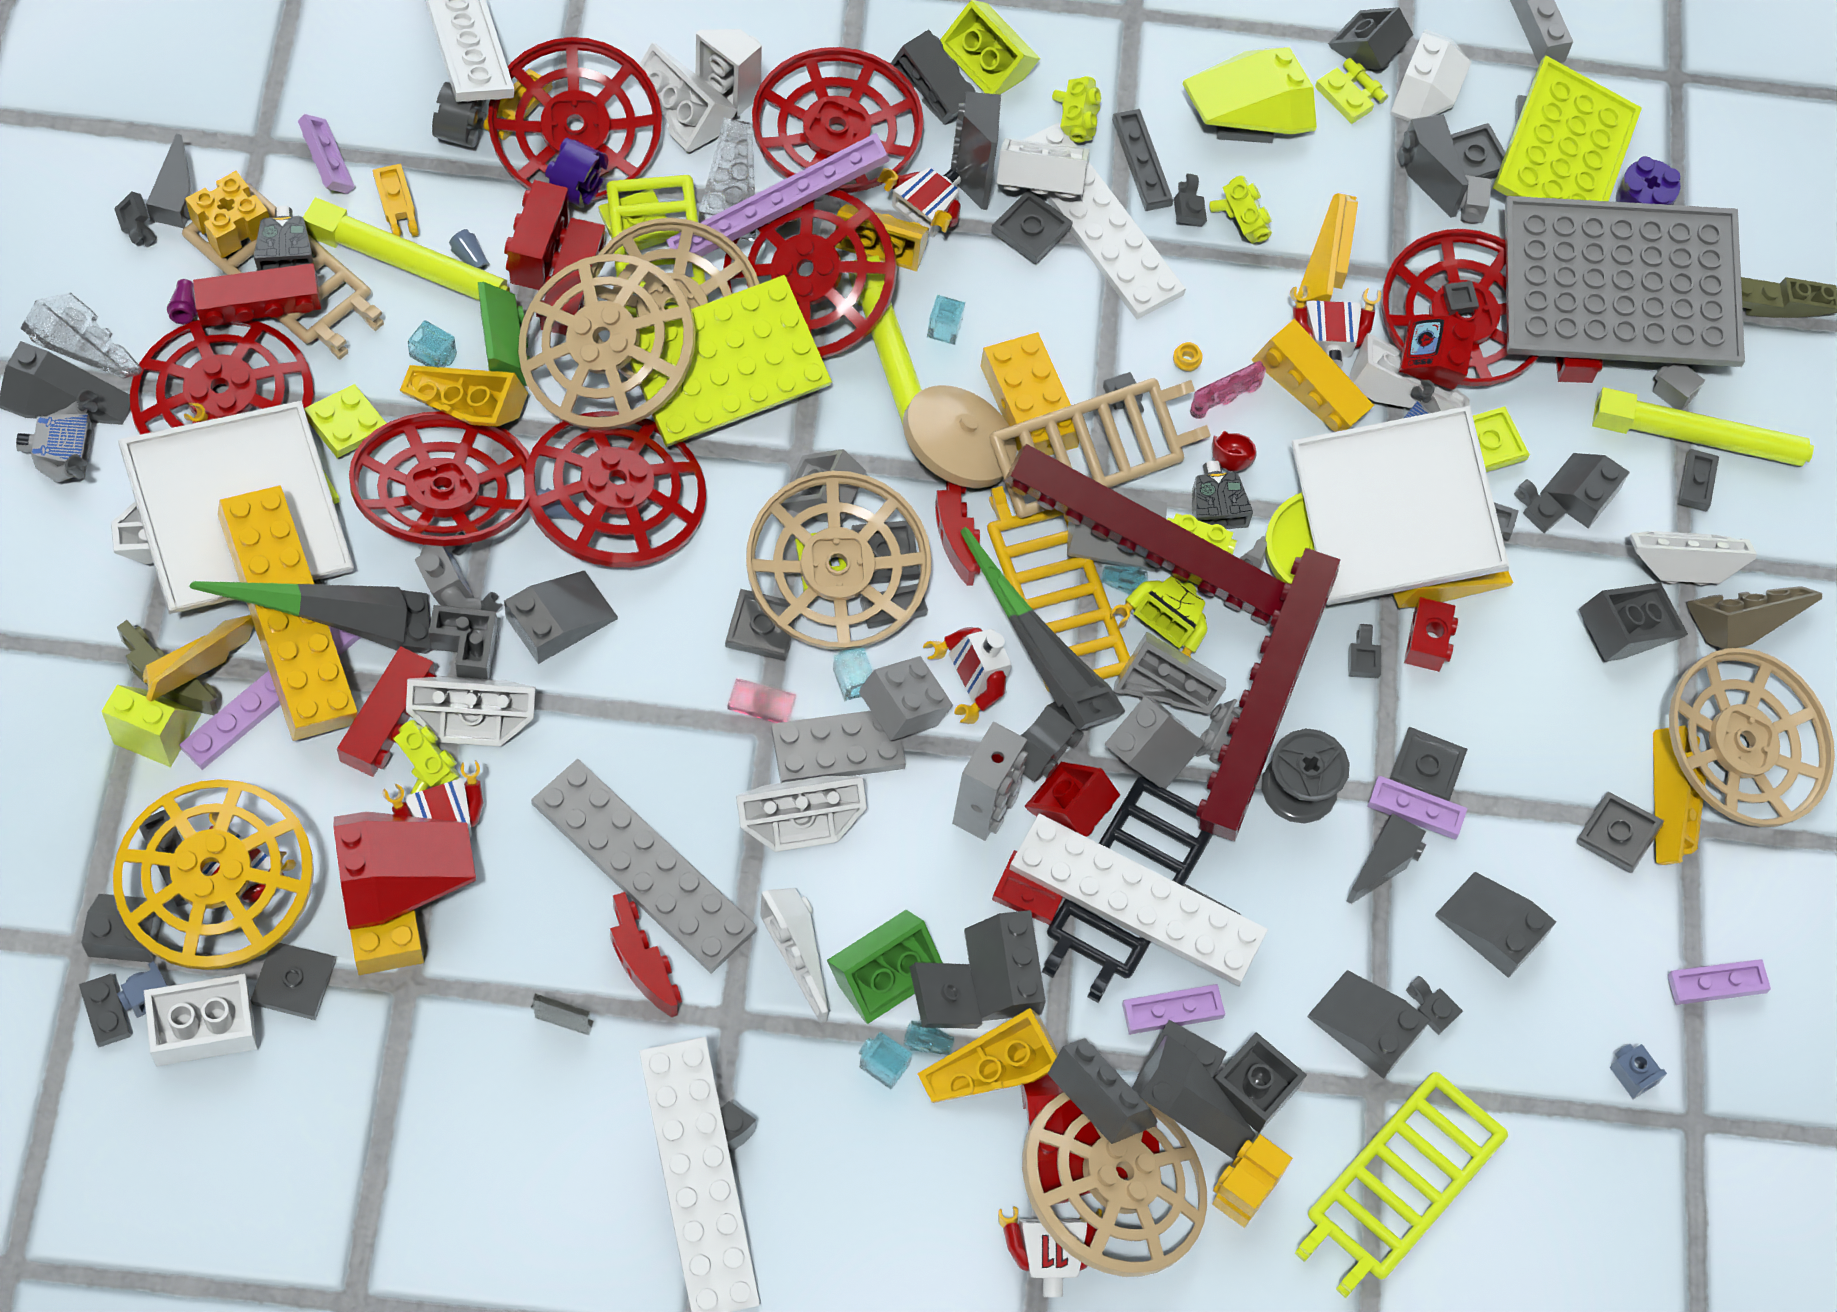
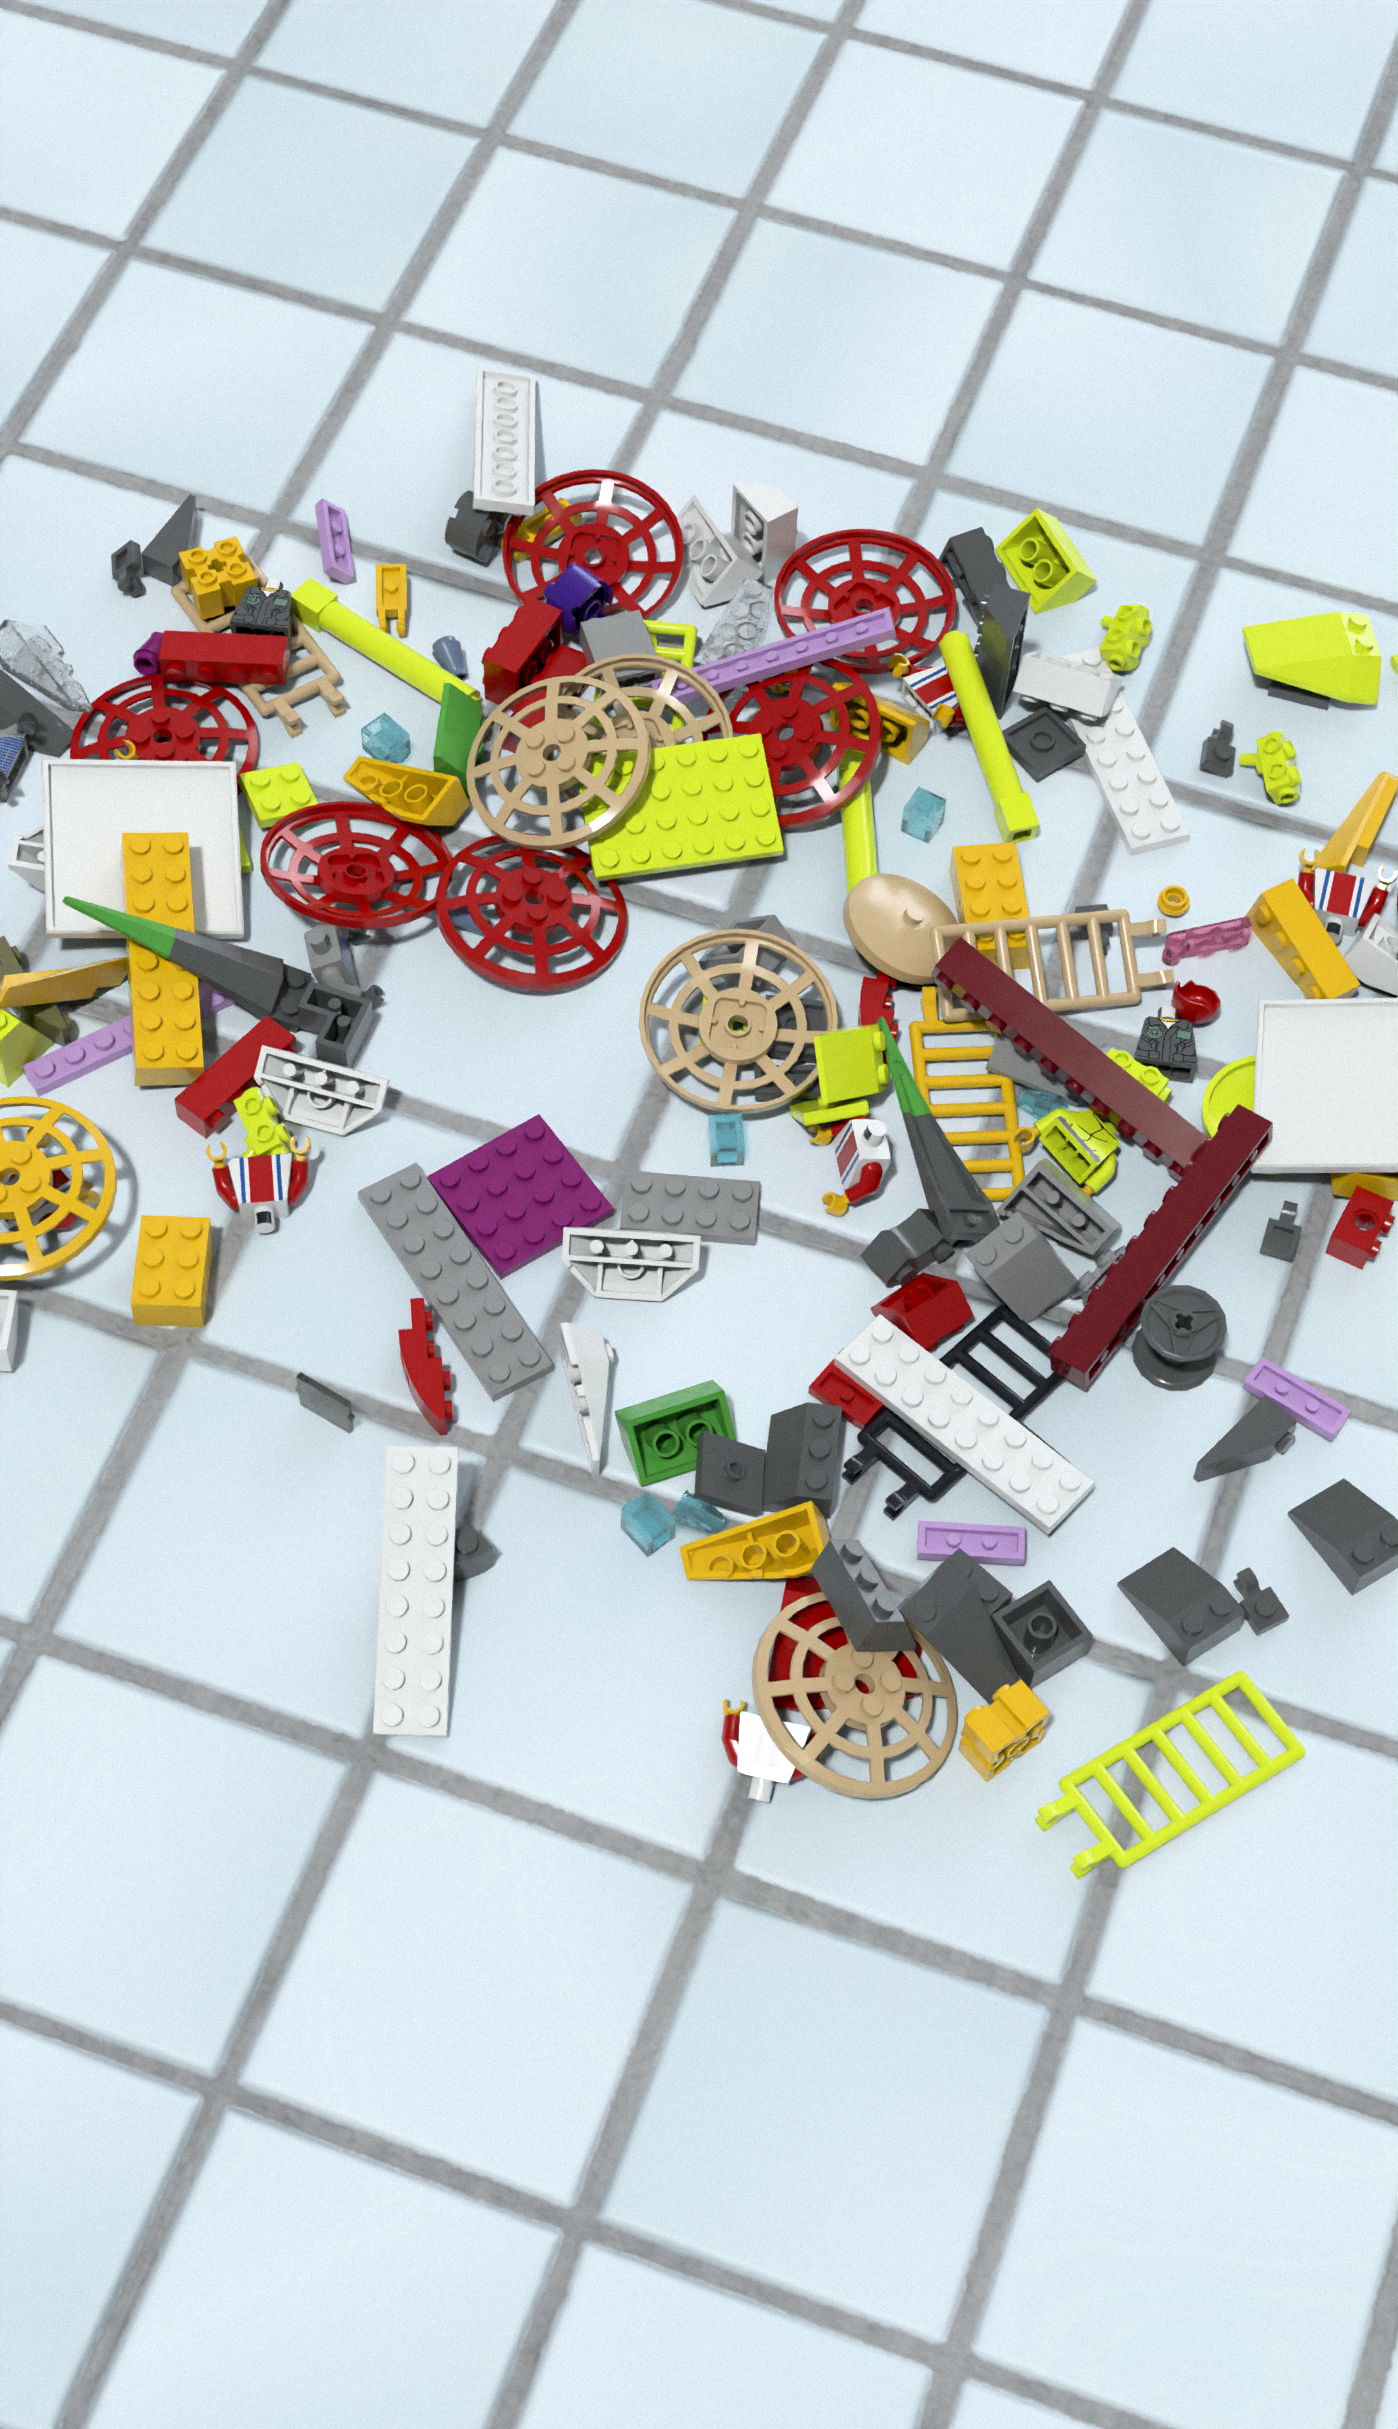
camera: 20 degrees right, 5 degrees down
(293, 980) = (67, 1314): dark grey plate -> none
(398, 863) = (199, 1219): wedge -> none
(557, 614) = (437, 1019): dark grey slope -> none
(624, 206) = (617, 636): none -> light grey brick
(681, 769) = (519, 1195): none -> magenta plate
(754, 631) = (635, 1078): dark grey plate -> none
(761, 701) = (622, 1147): clear pink plate -> none
(905, 698) = (771, 1171): light grey brick -> none
(940, 625) = (815, 1112): none -> neon yellow plate
(953, 579) = (851, 1062): none -> neon yellow slope
(990, 781) = (831, 1266): light grey brick -> none
(1024, 297) = (1012, 806): none -> neon yellow brick
(1142, 160) = (1180, 700): dark grey tile -> none
(1257, 554) = (1190, 1106): light grey helmet -> none
(1428, 763) = (1322, 1357): dark grey plate -> none

